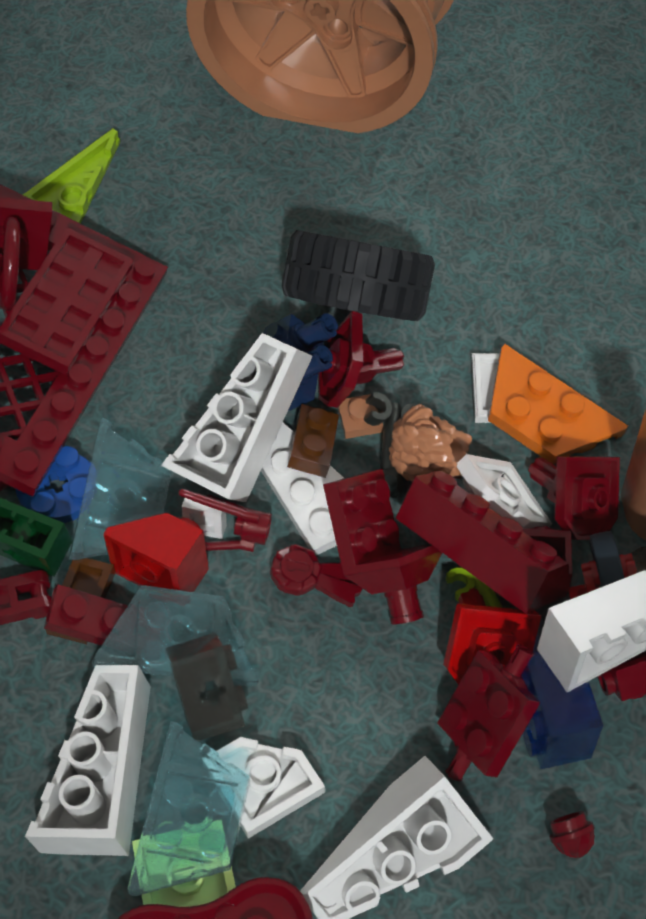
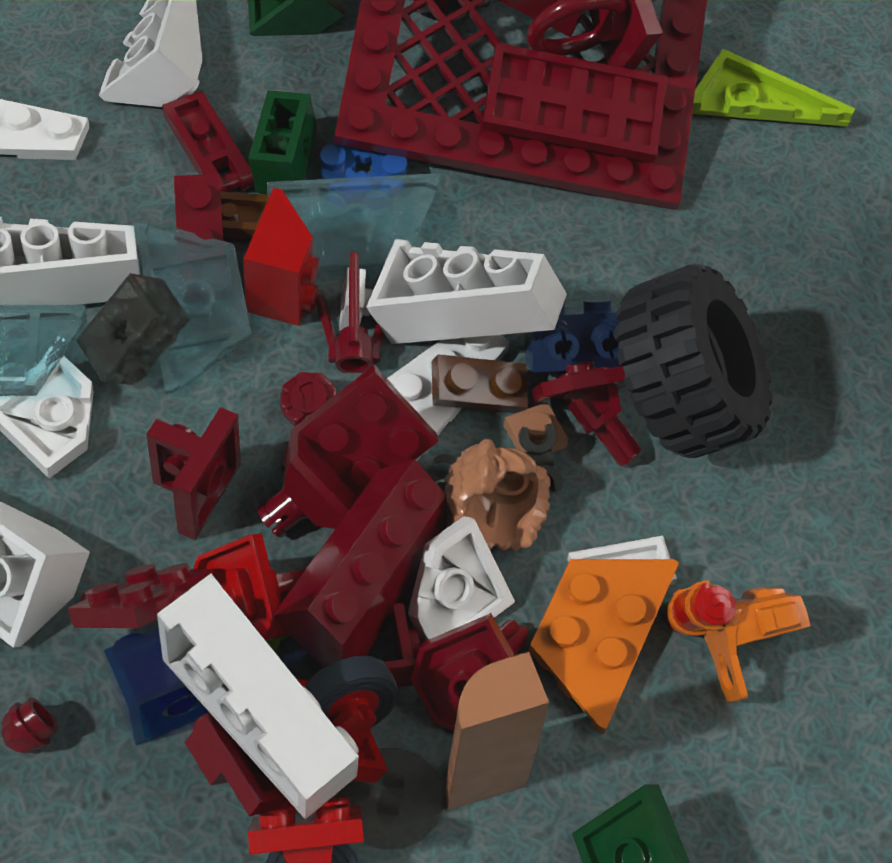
camera: 70 degrees right, 0 degrees up
(363, 653) = (195, 466): none -> dark red bracket
(568, 319) = (733, 622): none -> orange piece

